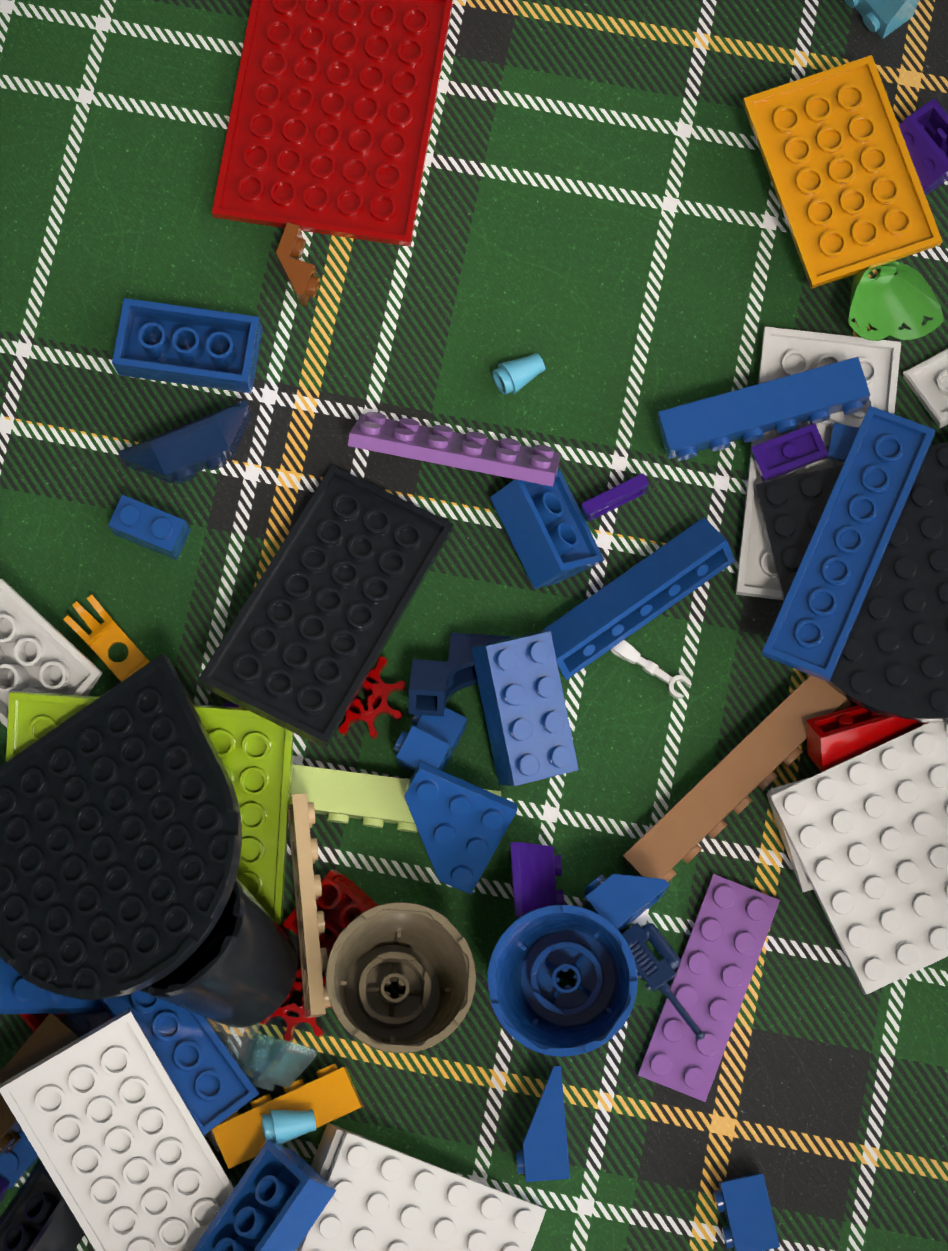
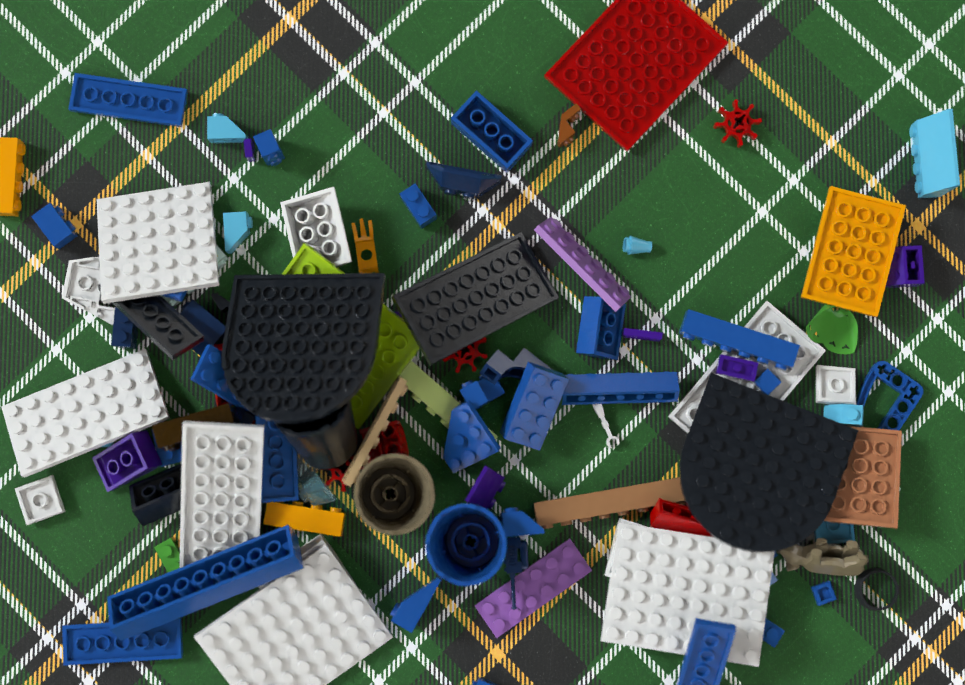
camera: 25 degrees right, 5 degrees up
(287, 1124) = (301, 523): medium azure cone -> none
(559, 103) = (732, 117): none -> red gear
(848, 543) = (734, 430): blue plate -> none

